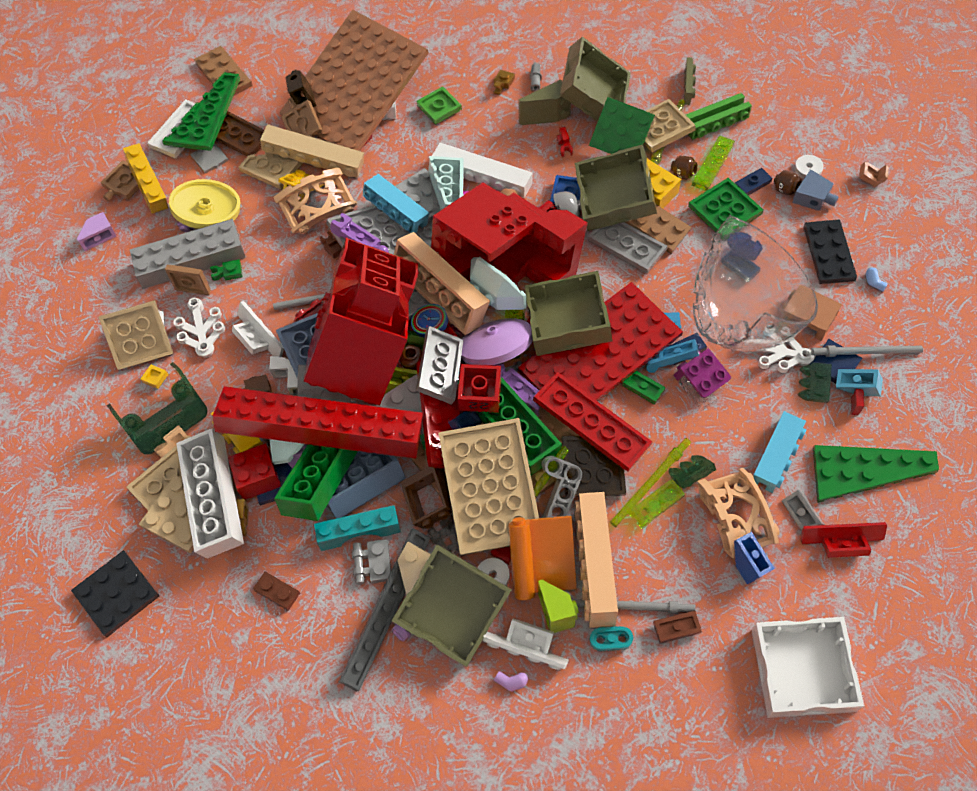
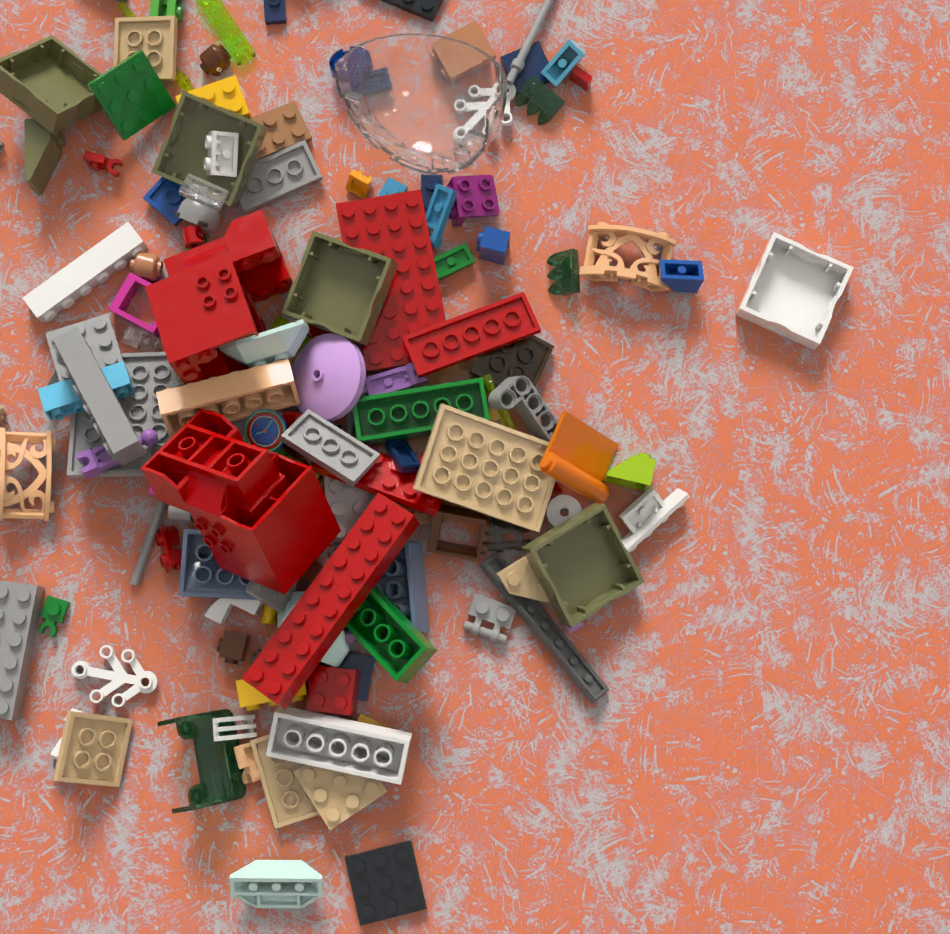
camera: 65 degrees left, 20 degrees up
(80, 507) = (276, 884): none -> light aqua wedge
(154, 376) = (152, 750): yellow plate -> none
(185, 404) = (250, 726): none -> white tile
(188, 279) = (49, 663): medium nougat tile -> none
(255, 334) = (161, 620): white bracket -> none
(276, 591) = (469, 723): copper plate -> none
(331, 245) = (90, 486): copper plate -> none
(377, 522) = (450, 614): teal arch -> none
(390, 200) = (97, 397): none -> light grey brick
(446, 178) = (98, 320): light aqua wedge -> none
(479, 388) = (385, 422): red brick -> none
(512, 683) = (674, 548): lavender arm -> none
(580, 195) = (203, 192): none -> clear plate
(595, 560) = (607, 411): light nougat brick -> none
(610, 637) = (680, 440): teal plate -> none
(617, 195) = (222, 153): none -> white bracket
(657, 503) = (578, 323): clear neon green plate -> none
(660, 295) = (358, 184): none -> light orange tile
(672, 607) = (680, 370): light grey bar -> none
(674, 455) = (538, 277): clear neon green bar -> none
(676, 405) = (493, 245): none -> blue brick
(677, 627) = (701, 376): copper plate -> none
(724, 200) = (291, 52): green plate -> none
(779, 450) = (589, 181): medium azure brick -> none
(801, 510) = (656, 200): light grey slope -> none
(844, 539) = (704, 182): red bracket -> none
(859, 469) = (642, 126): green wing -> none

